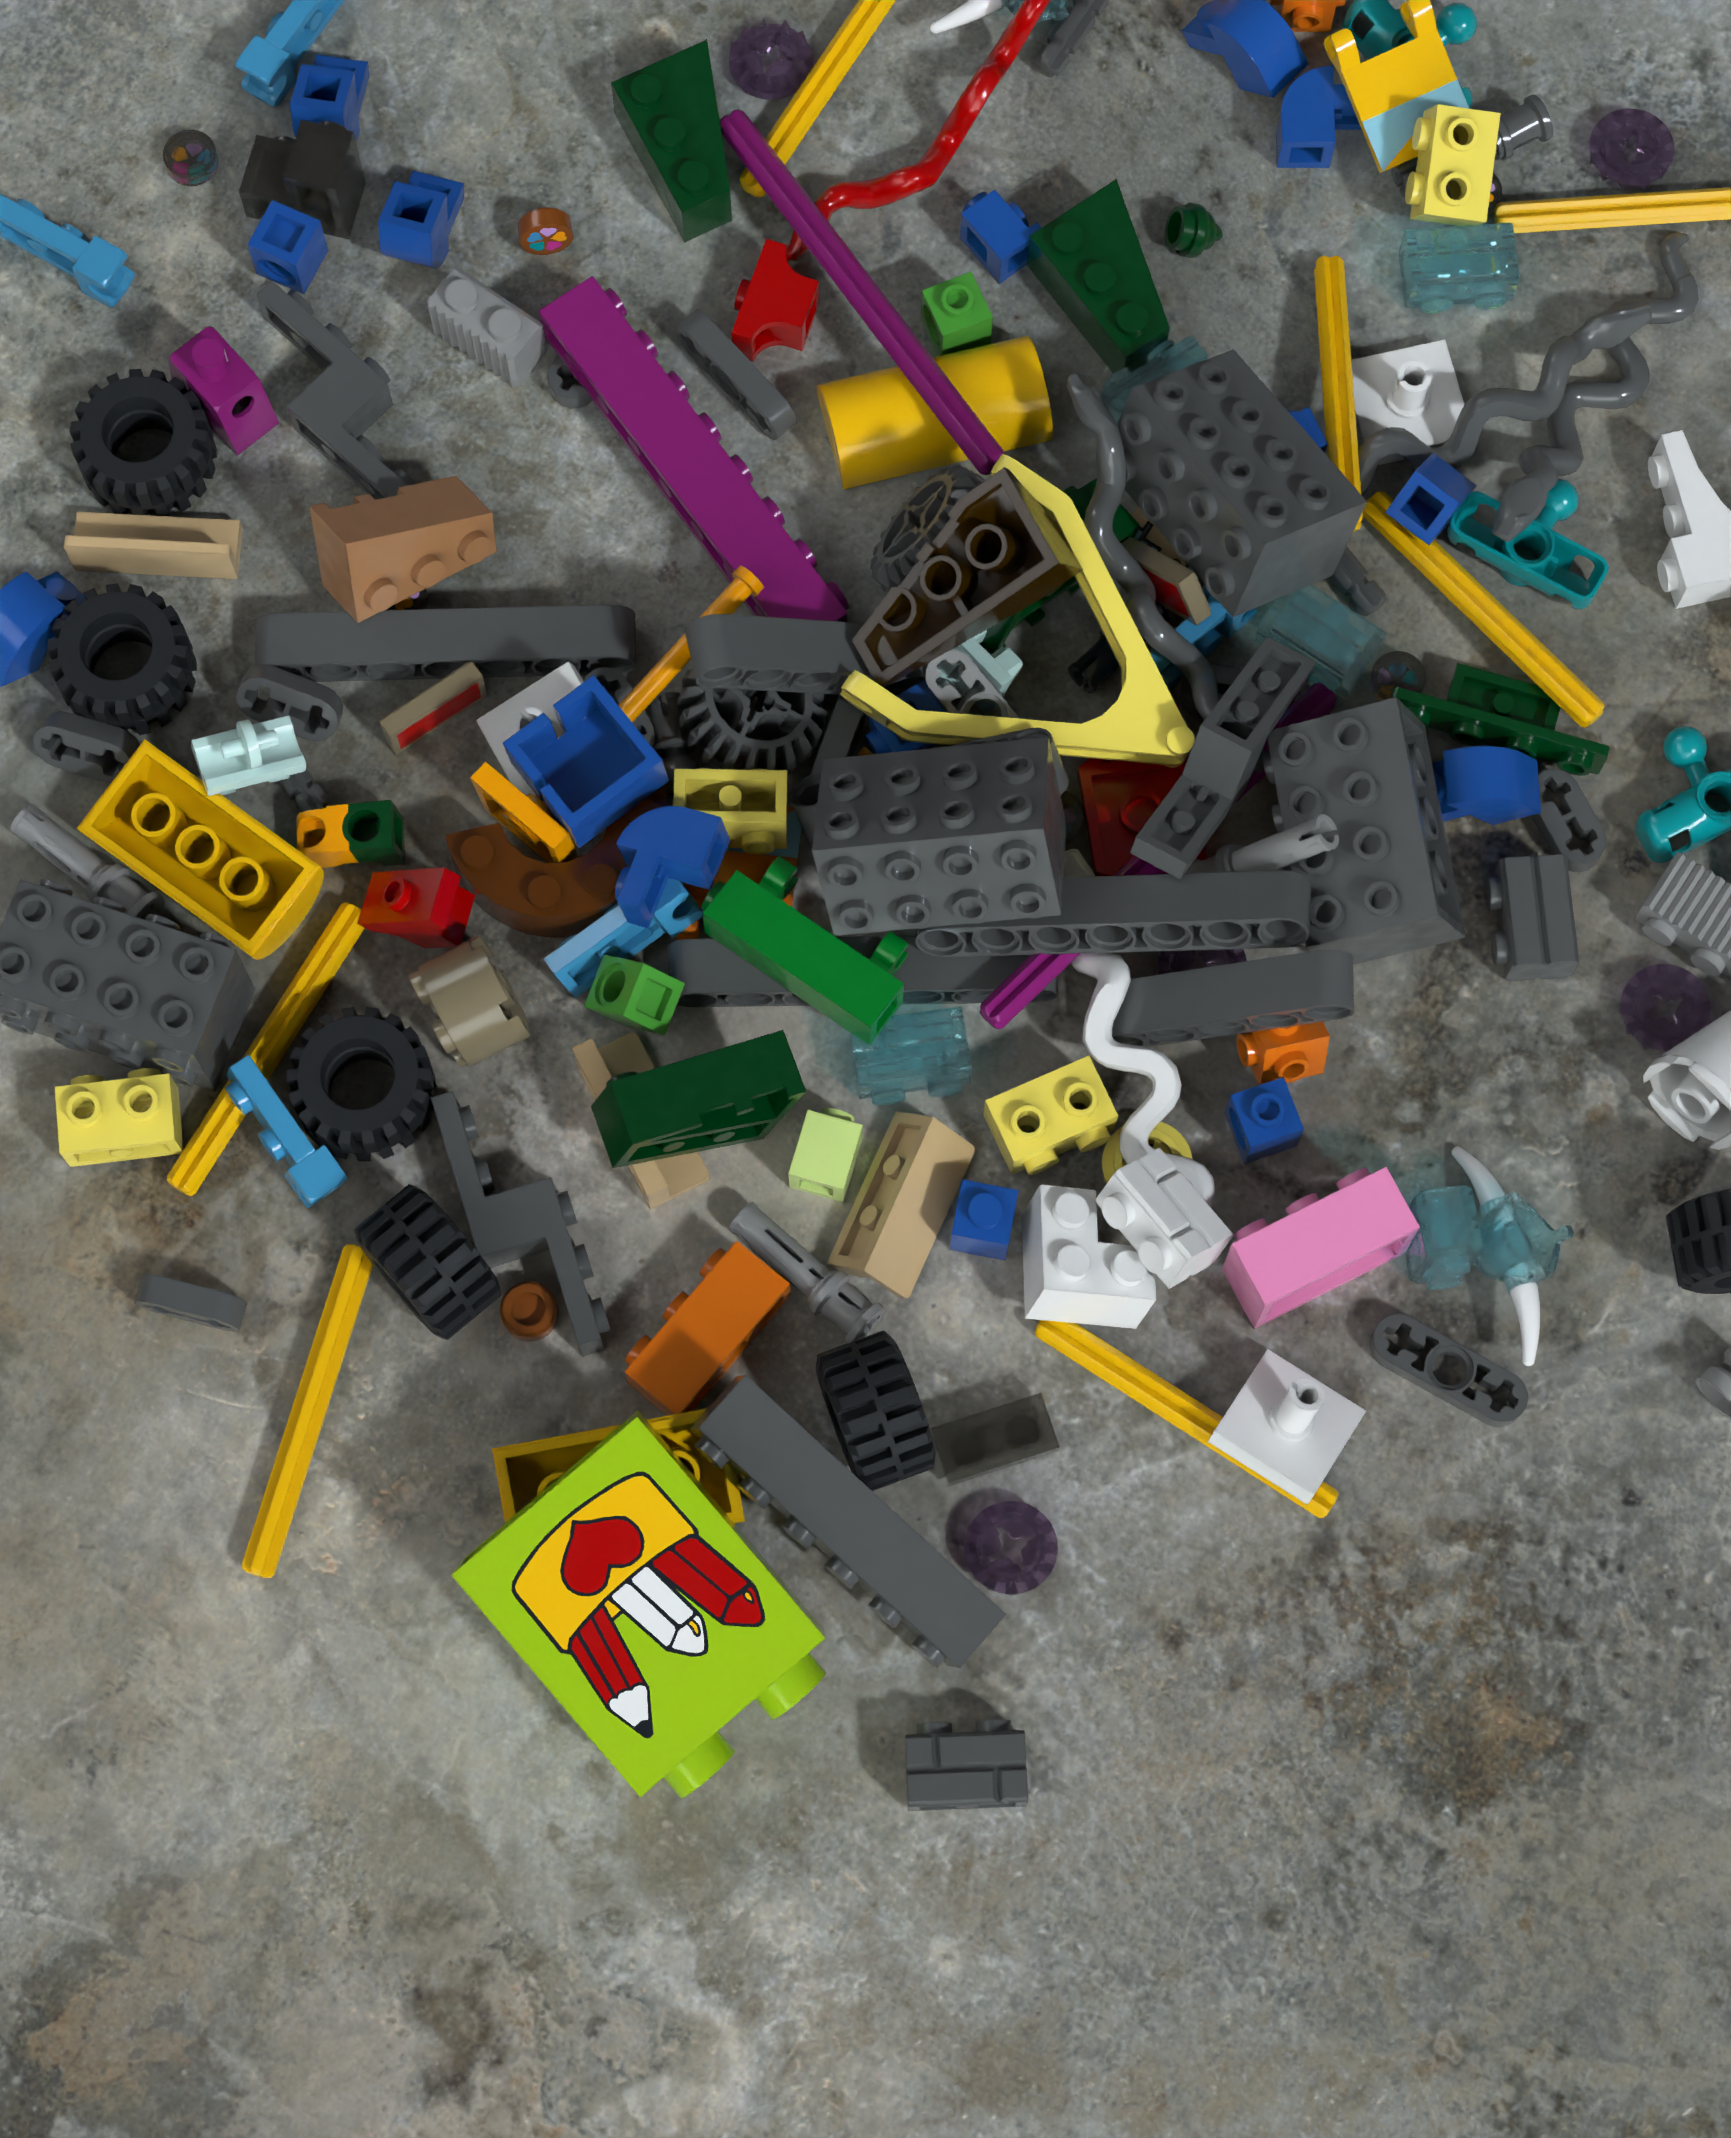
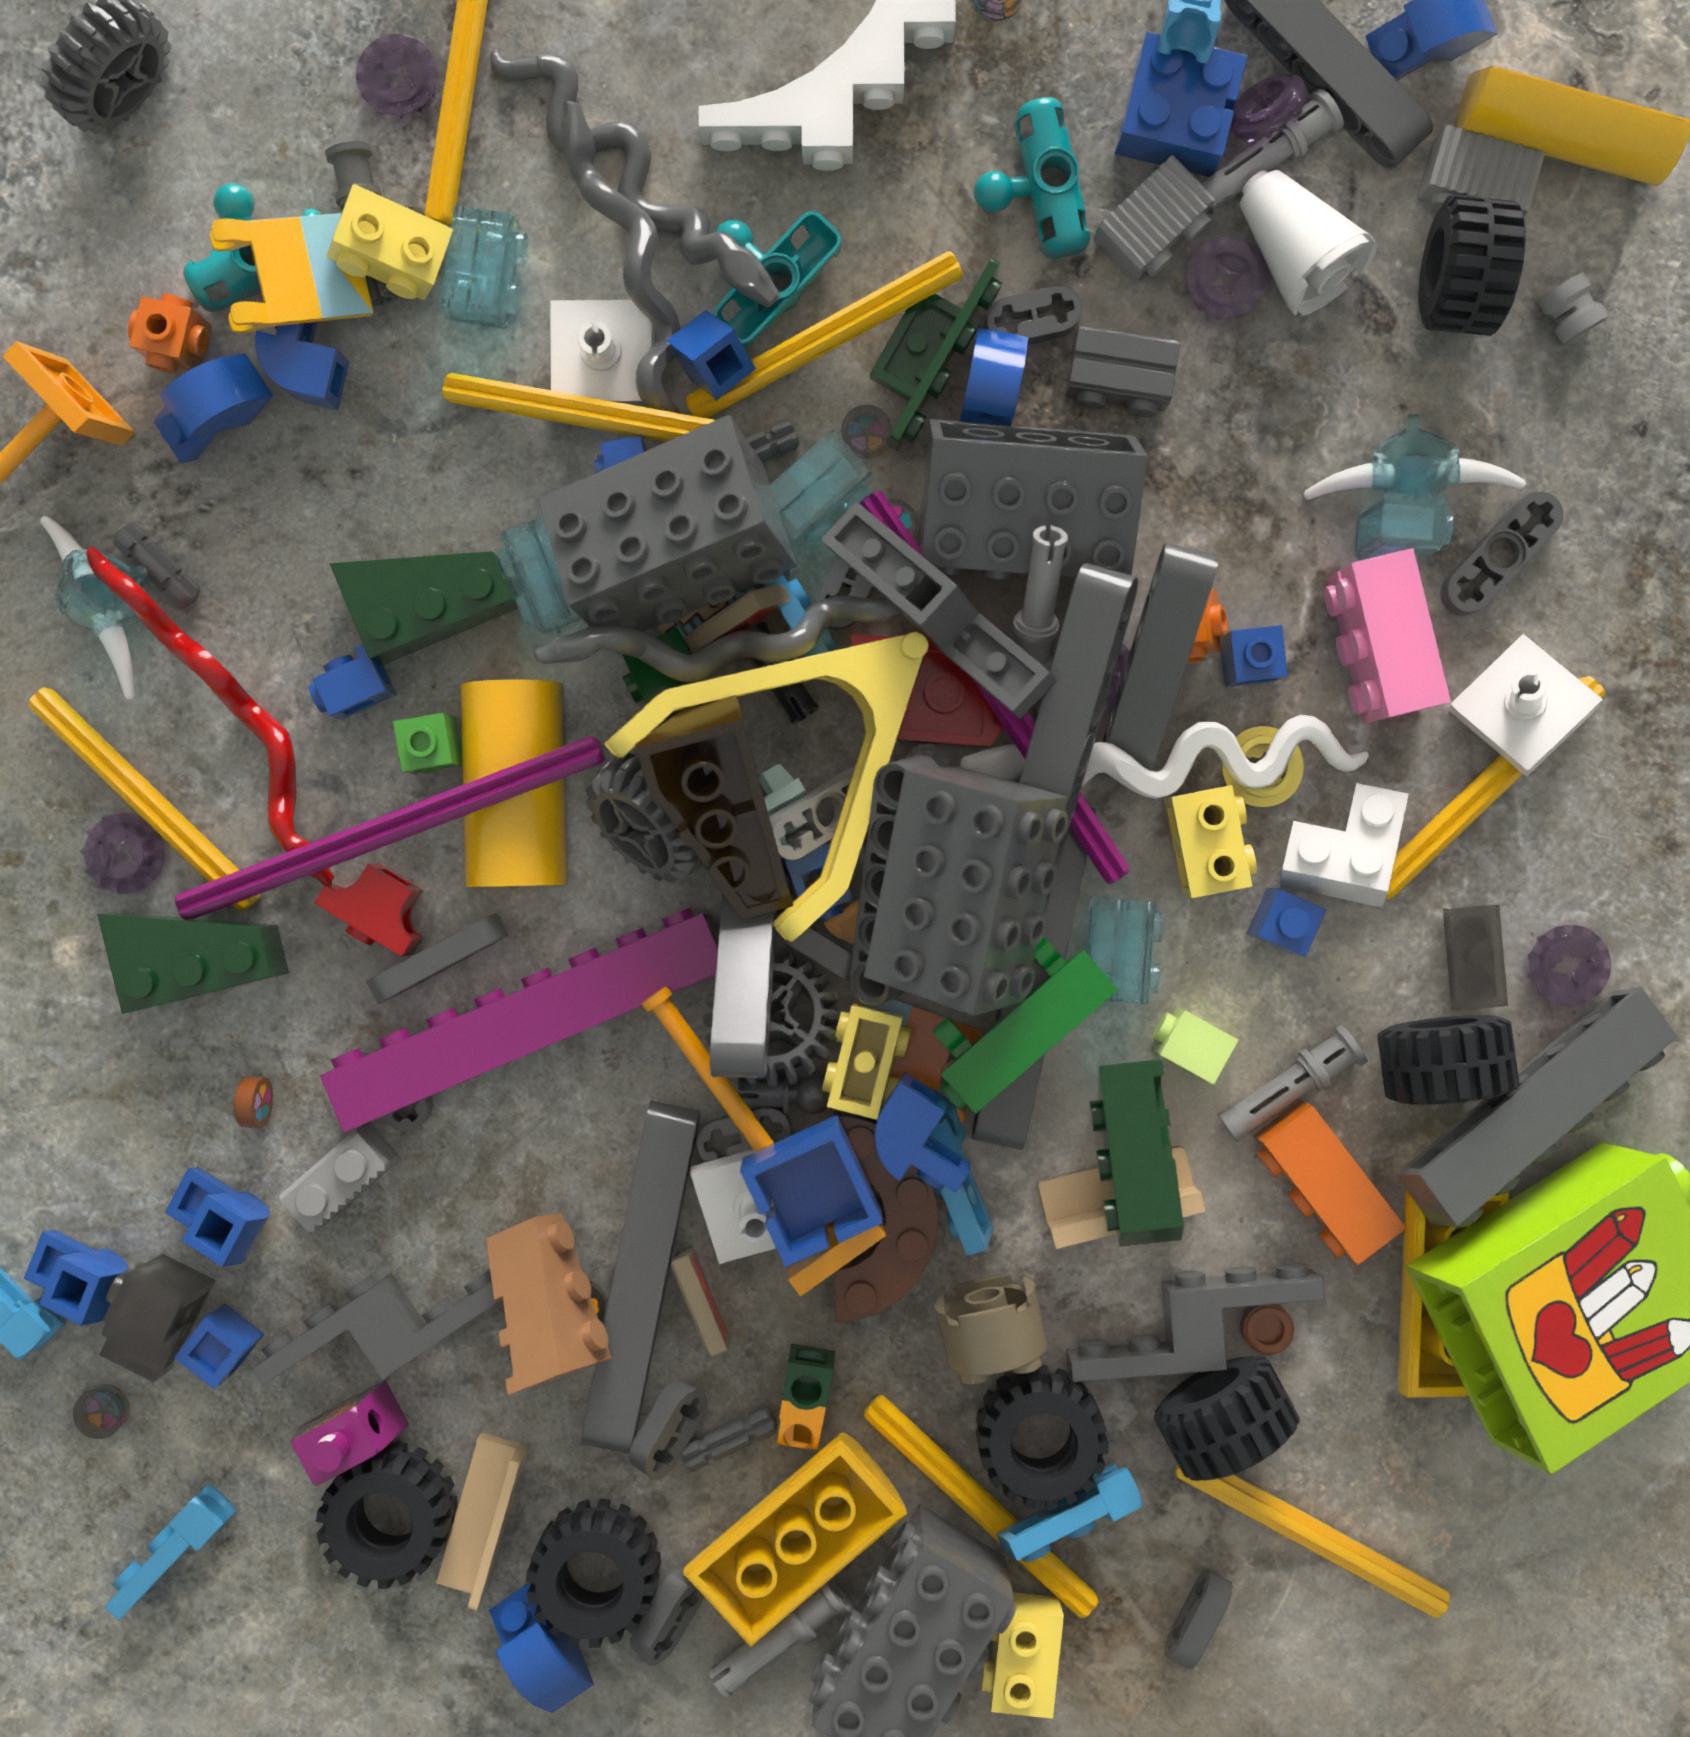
camera: 75 degrees left, 15 degrees up
(248, 755) = (721, 1484): light aqua hips -> none
(418, 906) = (890, 1356): red brick -> none
(634, 994) = (1017, 1182): bright green brick -> none
(902, 1203) = (1249, 988): tan panel -> none
(1163, 1218) = (1343, 770): white brick -> none
(1191, 230) = (387, 505): dark green plate -> none

